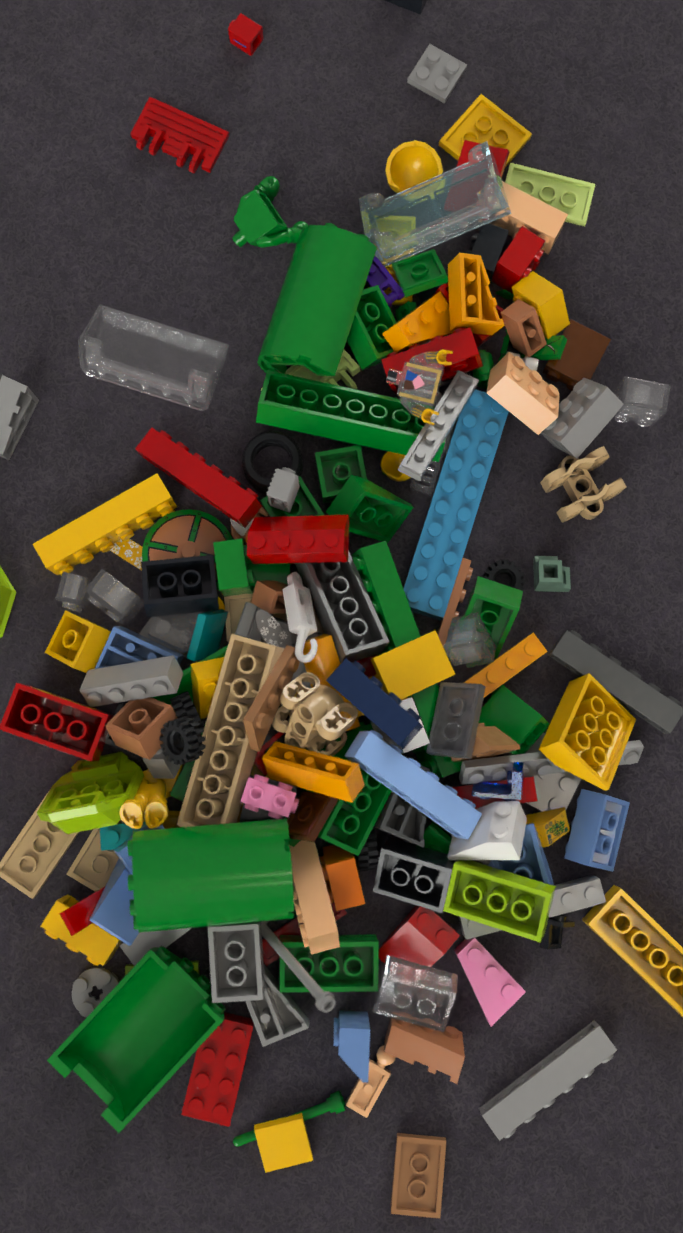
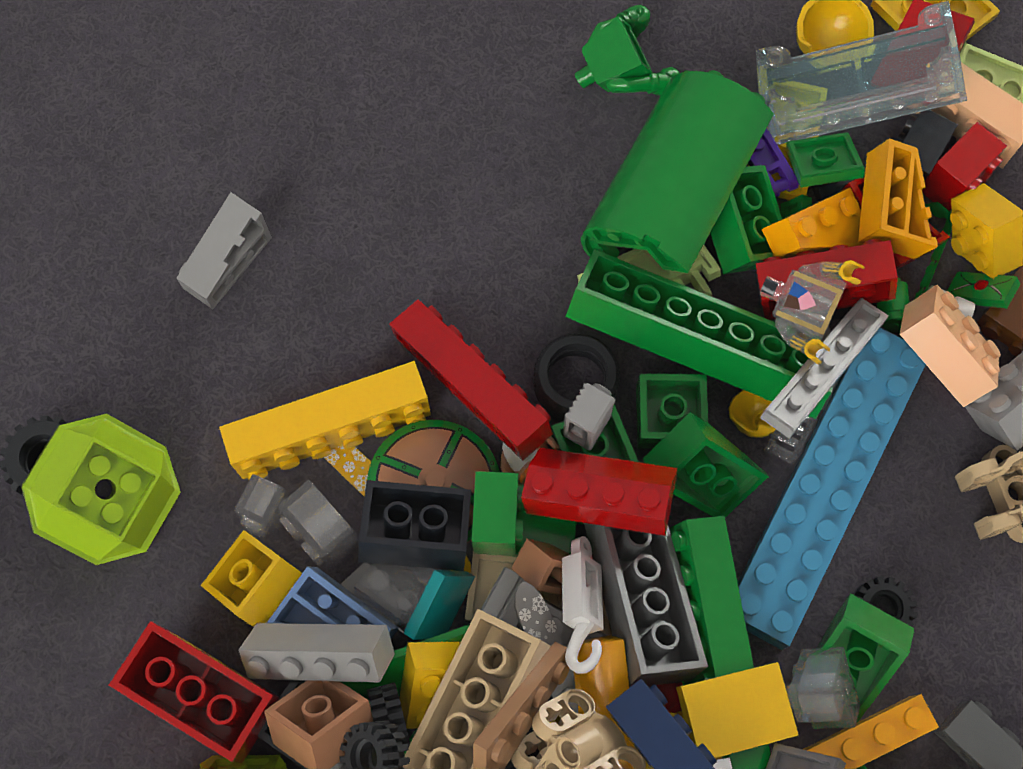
camera: 15 degrees right, 10 degrees down
(151, 357) = (437, 208): clear windscreen -> none
(457, 595) = (812, 619): nougat plate -> none
(523, 328) = (961, 257): nougat brick -> none
(550, 574) = (954, 612): sand green brick -> none

